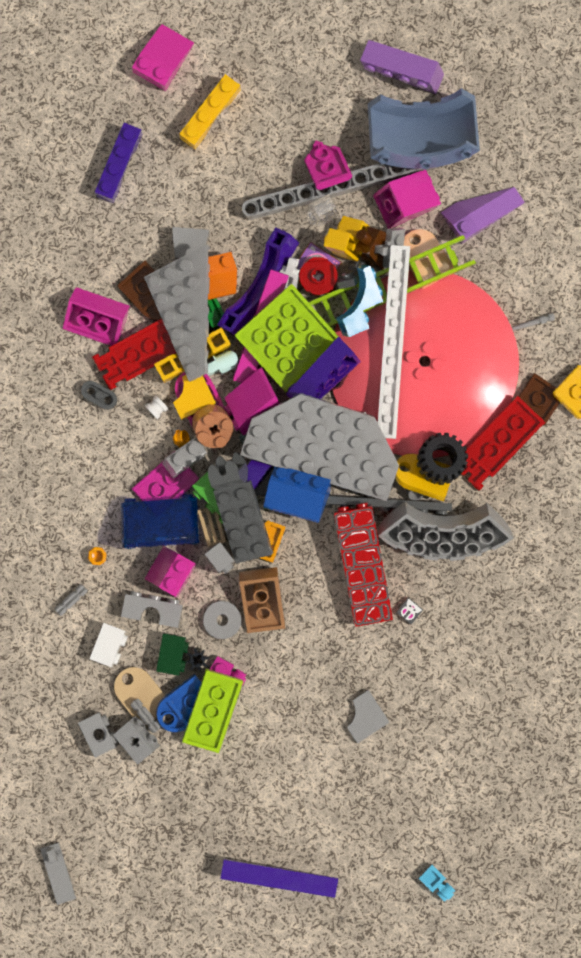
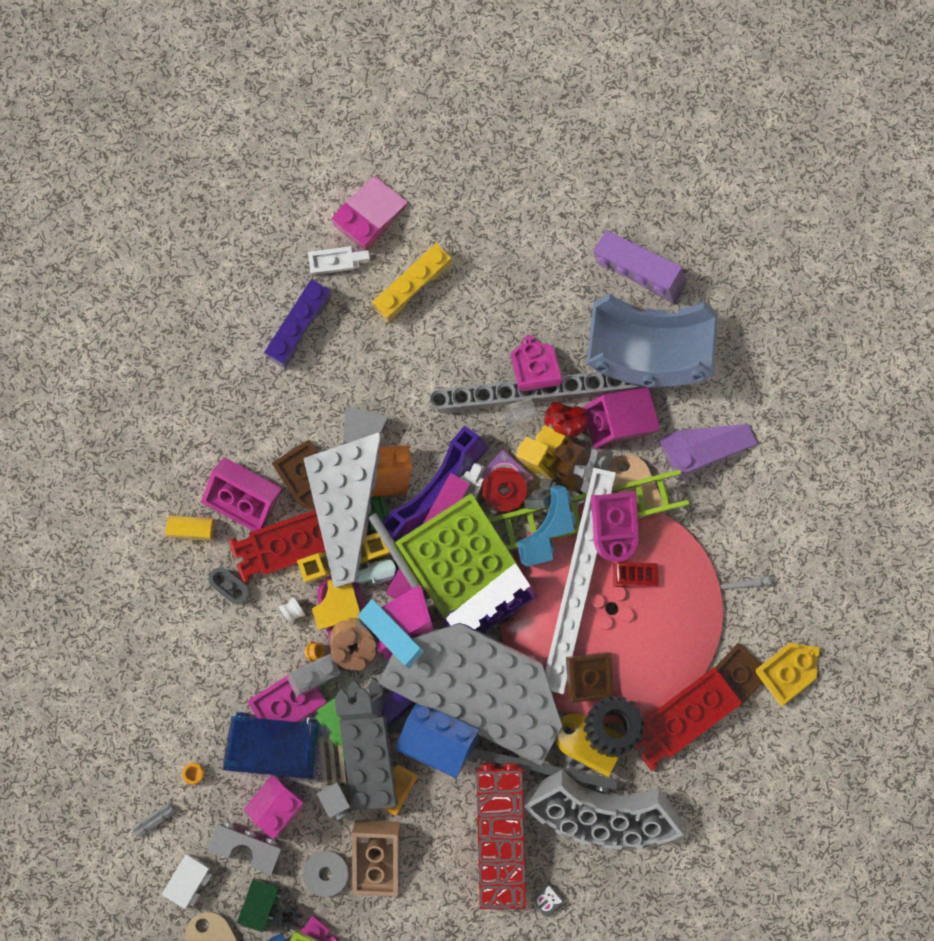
camera: 15 degrees right, 5 degrees down
(58, 351) = (190, 527): none -> yellow brick
(142, 102) = (336, 260): none -> white hinge
(234, 342) = (393, 549): none -> light grey piece
(243, 412) = (390, 633): none -> medium azure tile
(361, 208) = (566, 419): none -> red plate
(415, 421) = (589, 677): none -> reddish brown tile
(416, 289) = (615, 523): none -> dark pink tile
(426, 337) = (619, 582): none -> red slope

